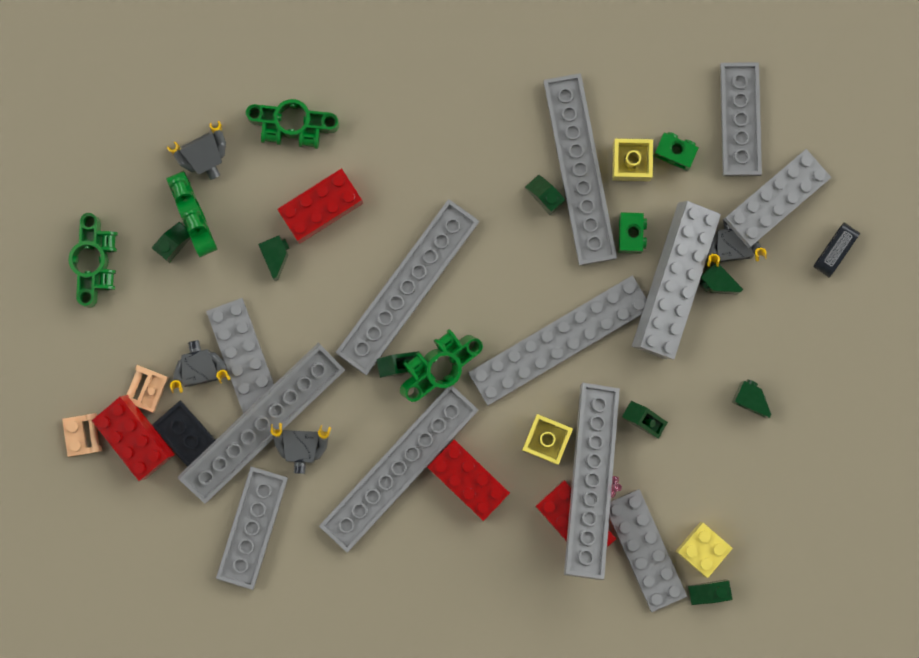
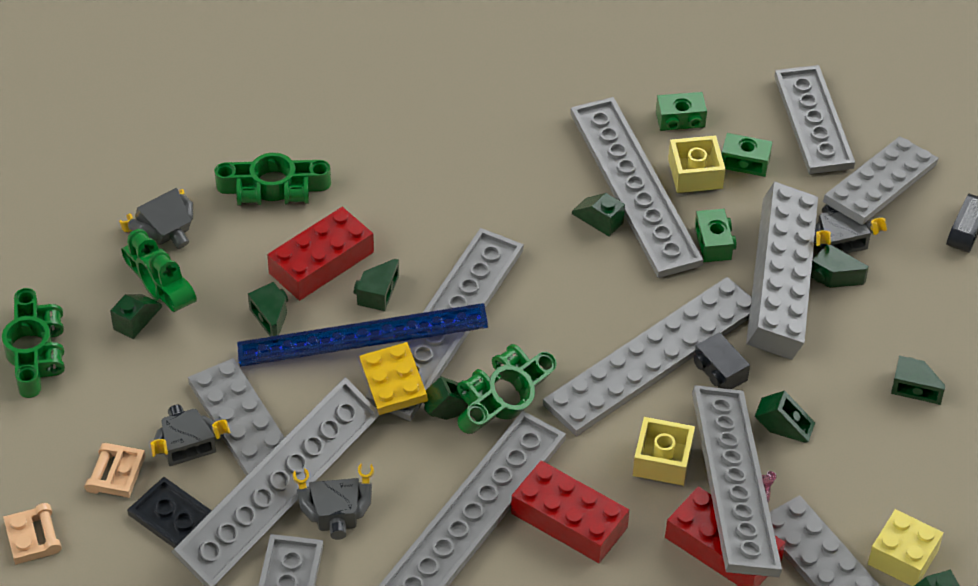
camera: 10 degrees left, 35 degrees down
(133, 437) = (105, 519): red brick -> none
(341, 296) = (362, 334): none -> clear blue plate
(357, 342) = (393, 378): none -> yellow plate
(359, 244) = (377, 285): none -> dark green slope
(608, 360) = (721, 362): none -> brick
(643, 91) = (681, 111): none -> green brick

